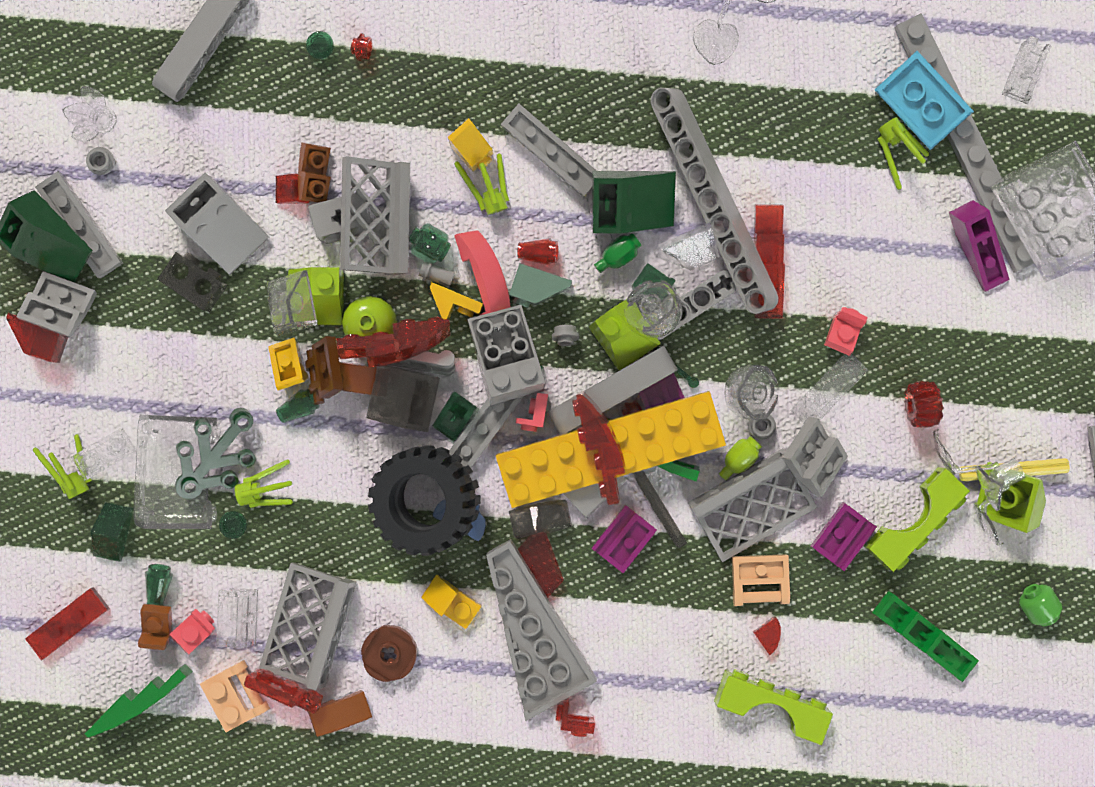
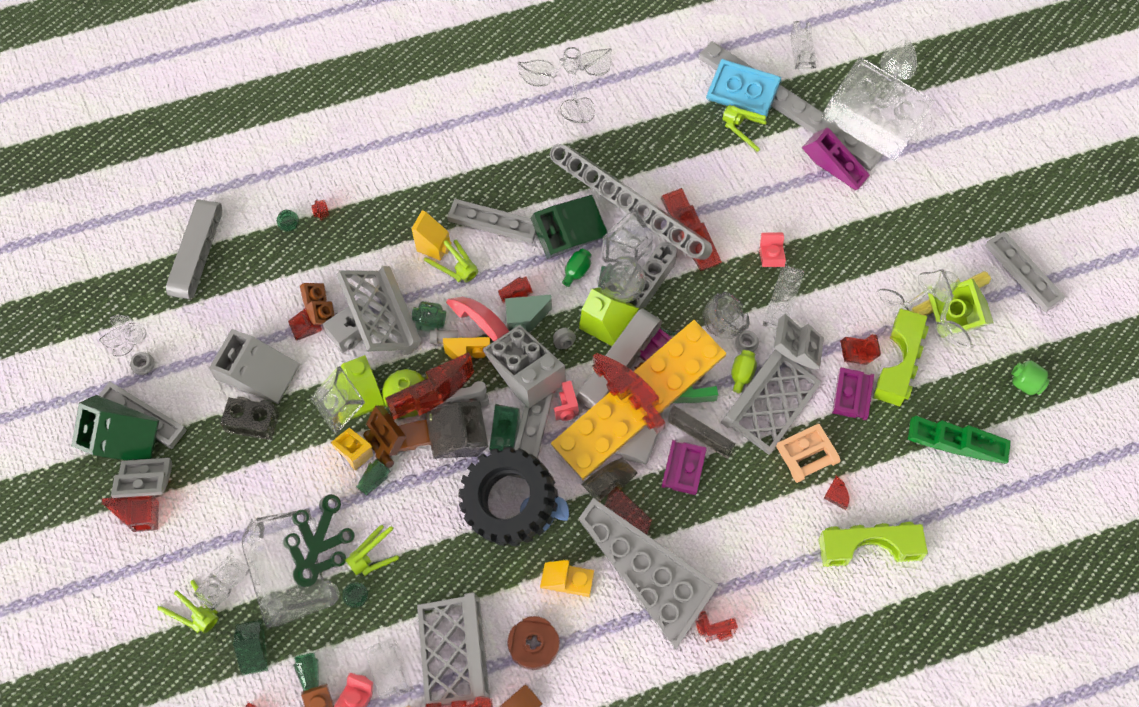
camera: 30 degrees left, 25 degrees down
(878, 491) = (860, 350): none -> clear red bracket
(923, 404) = (857, 273): clear red gear -> none

